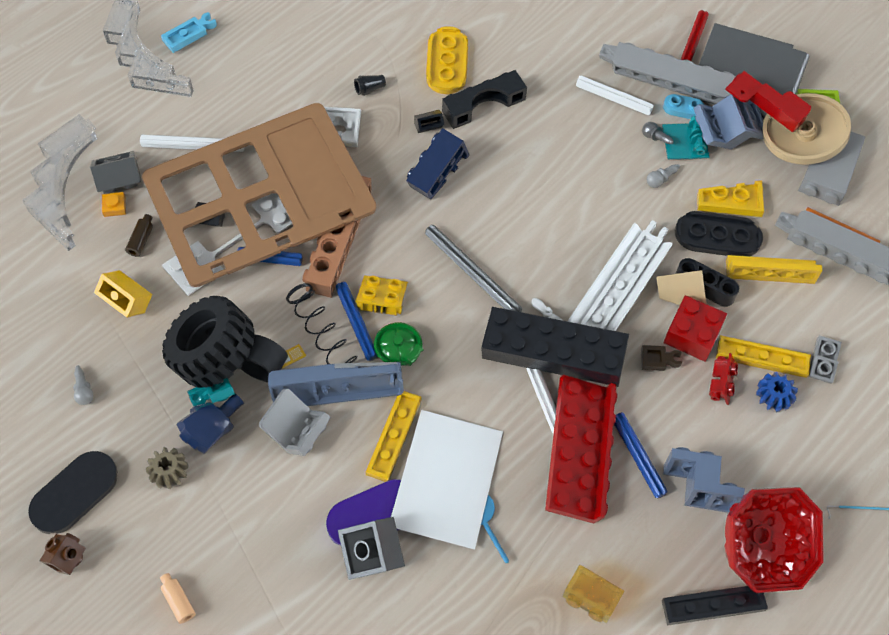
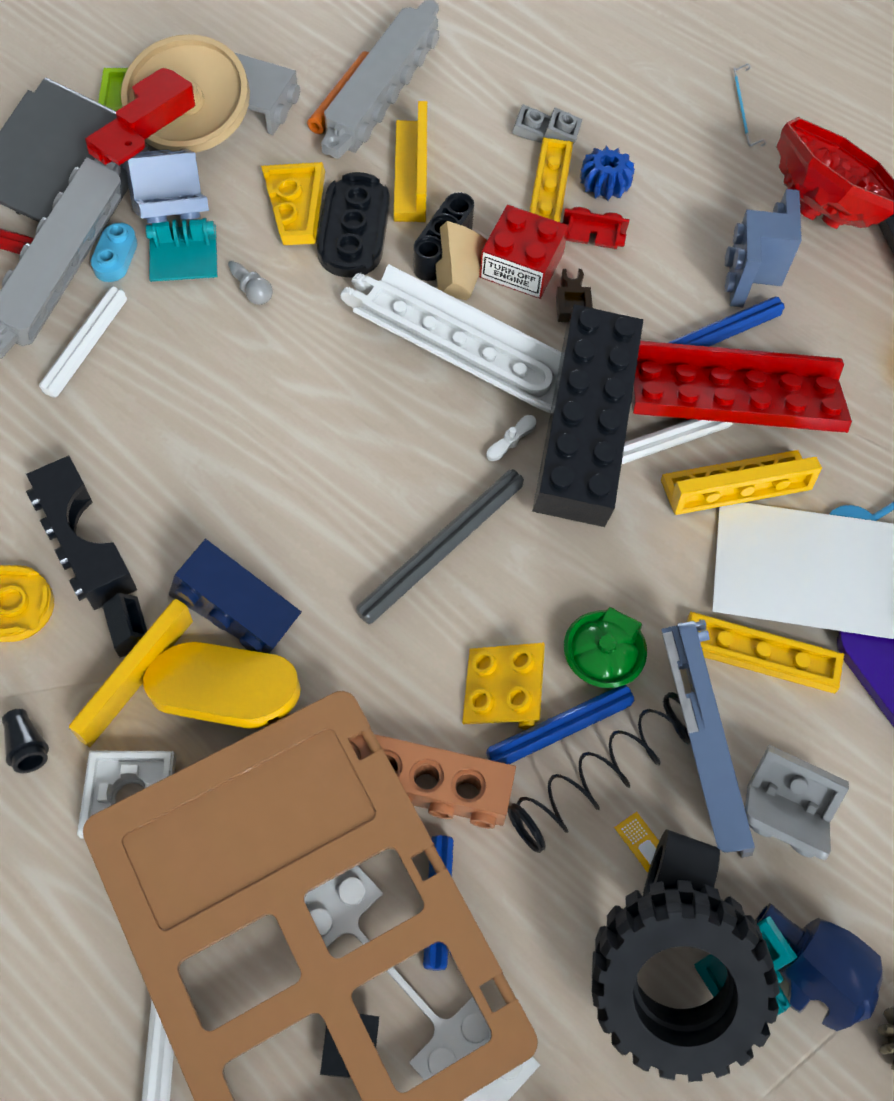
camera: 95 degrees left, 0 degrees up
(389, 160) = (222, 684): none -> yellow tile
(398, 123) = (130, 673): none -> yellow tile
(508, 441) = (740, 481): none -> yellow fence
(653, 131) = (159, 295): flat silver bar -> none

